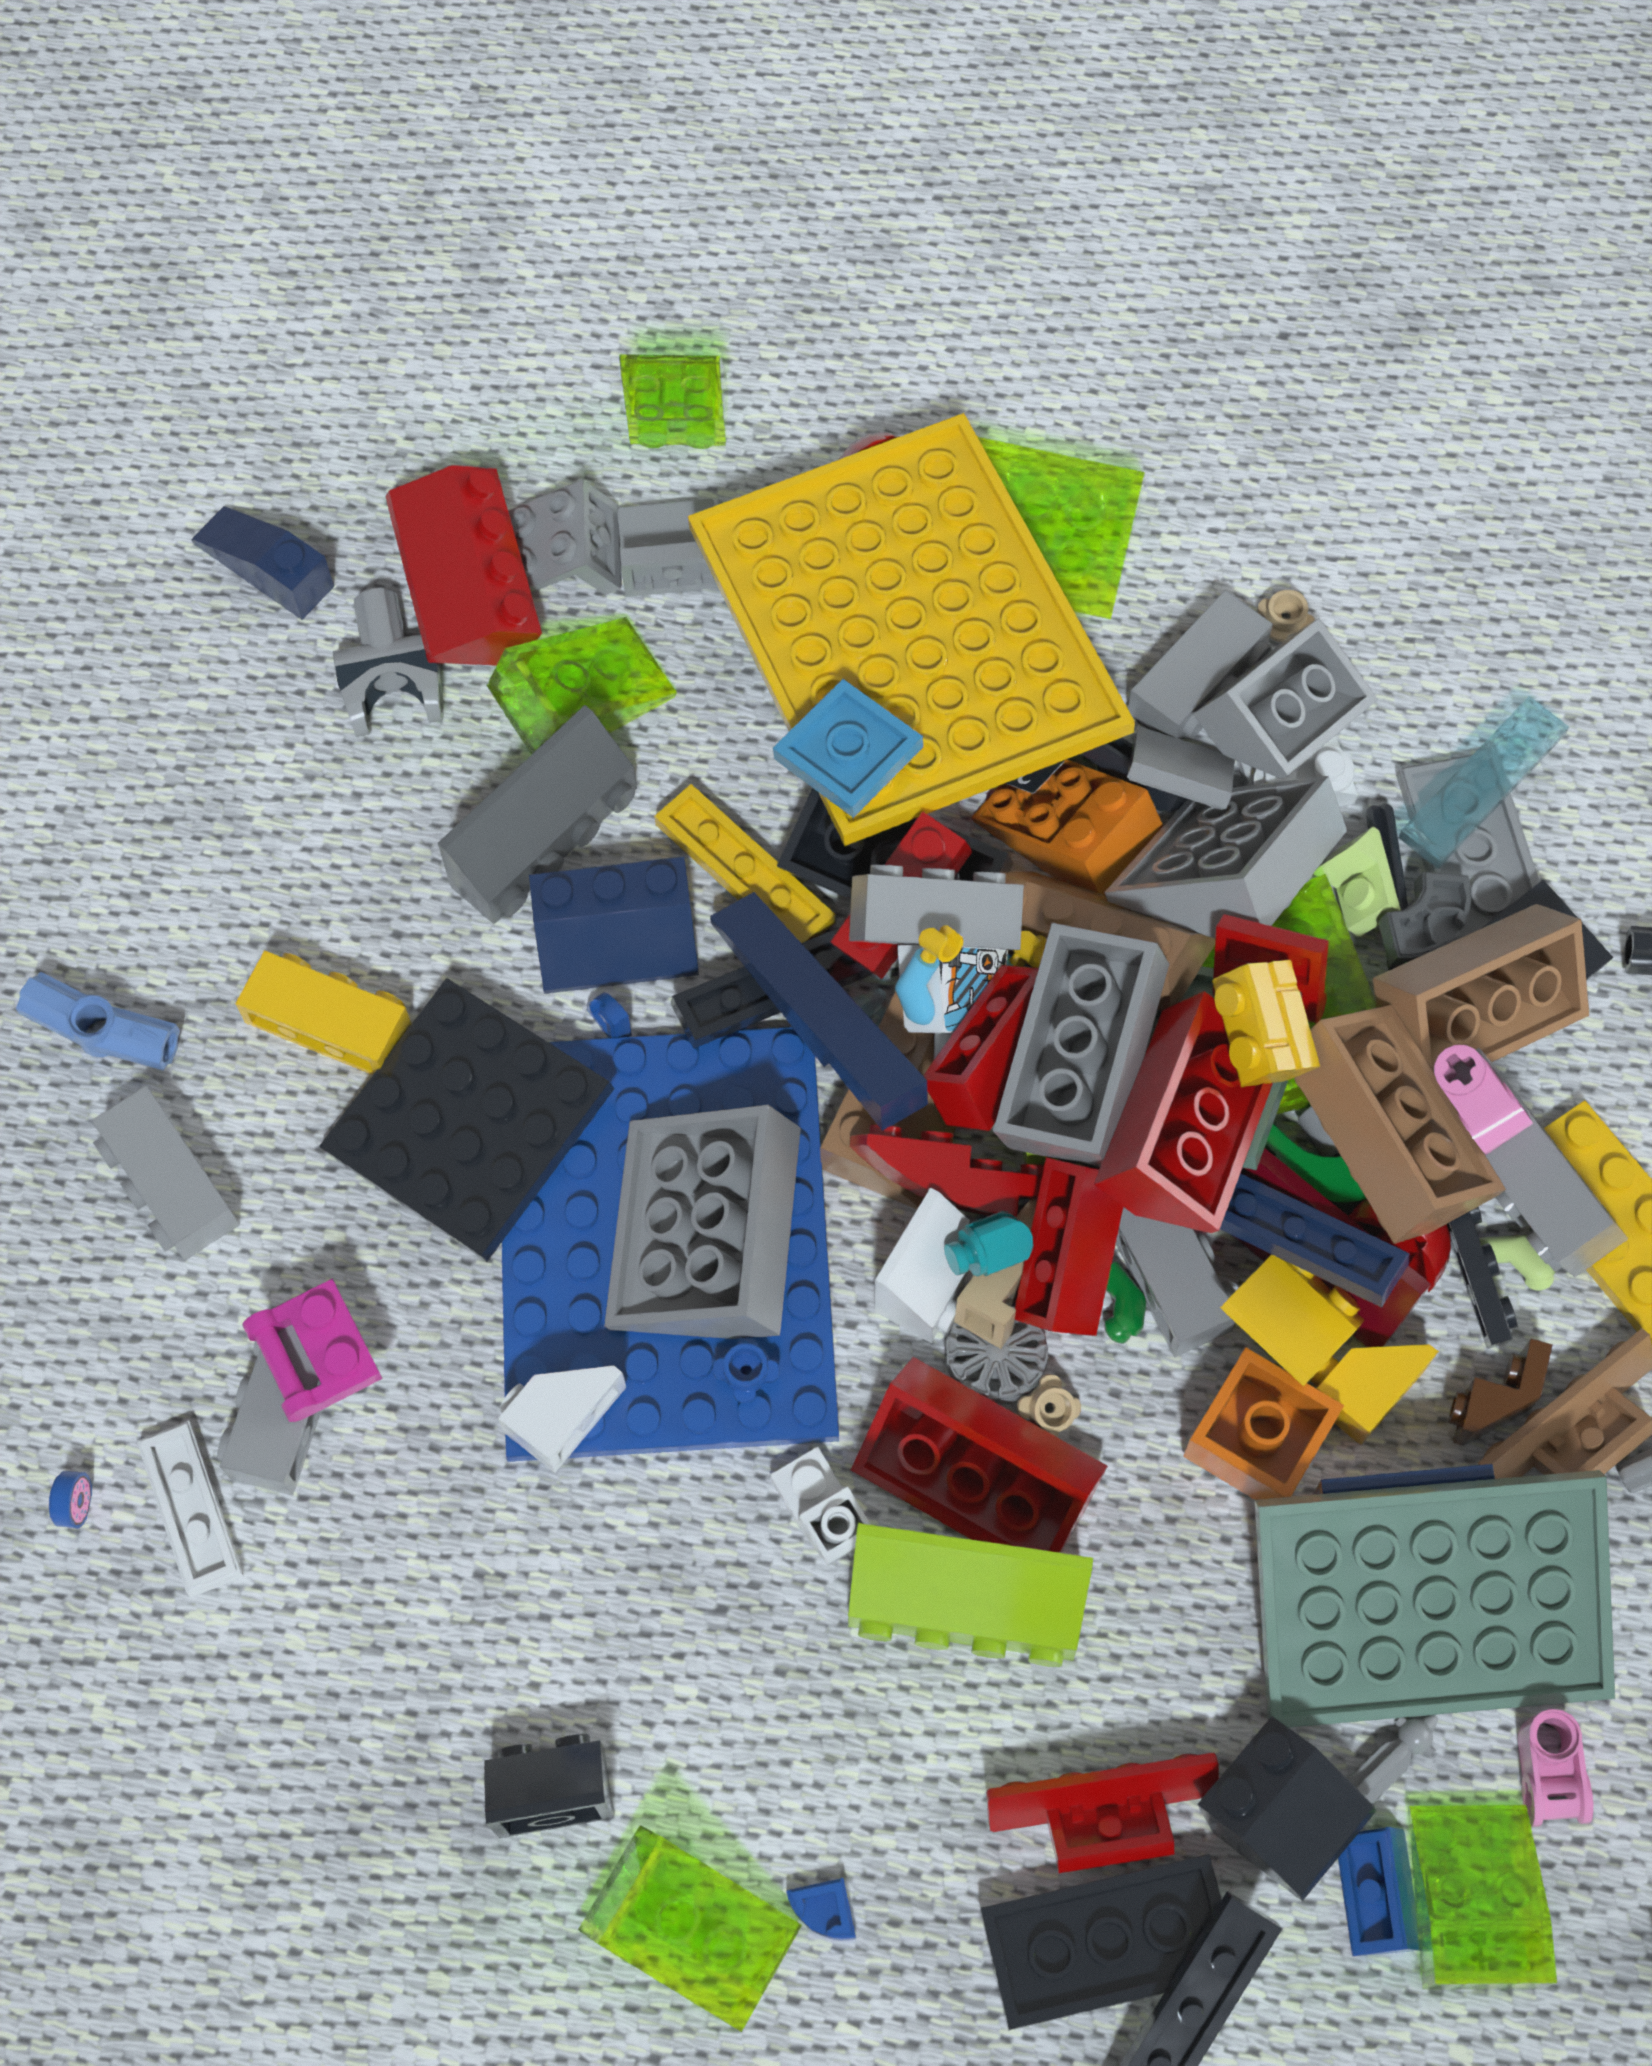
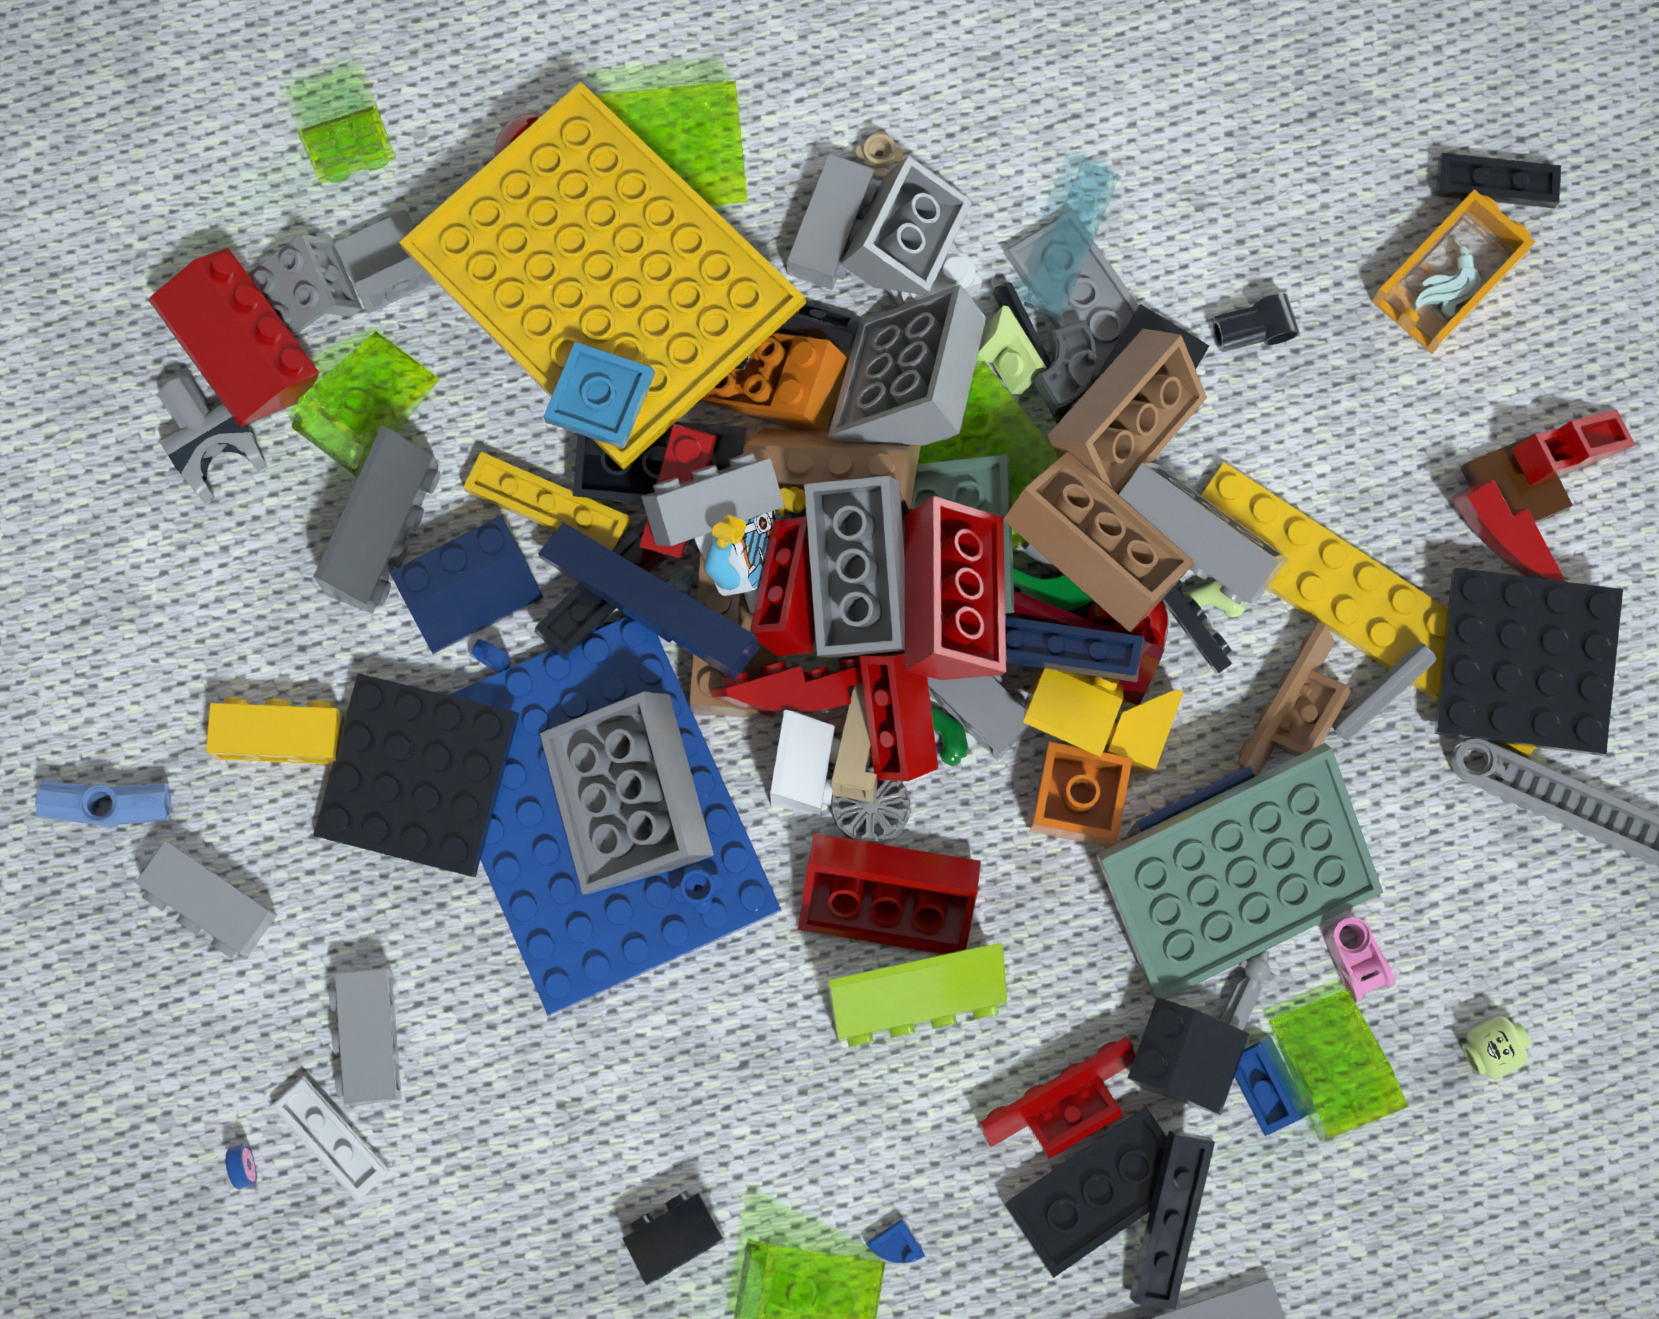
camera: 25 degrees left, 10 degrees up
(267, 559) = (71, 382): dark blue slope -> none
(329, 1342) = (387, 983): dark pink plate -> none
(559, 1410) = (574, 970): white slope -> none
(820, 1505) = (789, 966): white slope -> none
(989, 1245) = (841, 734): teal arm -> none
(1065, 1406) = (934, 831): tan plate -> none
(1181, 768) = (847, 310): light grey tile -> none
(1249, 942) = (972, 455): red plate -> none
(1265, 1023) = (985, 504): yellow brick -> none
(1484, 1104) = (1162, 509): bright pink piece -> none
(1491, 1405) = (1229, 716): reddish brown slope -> none

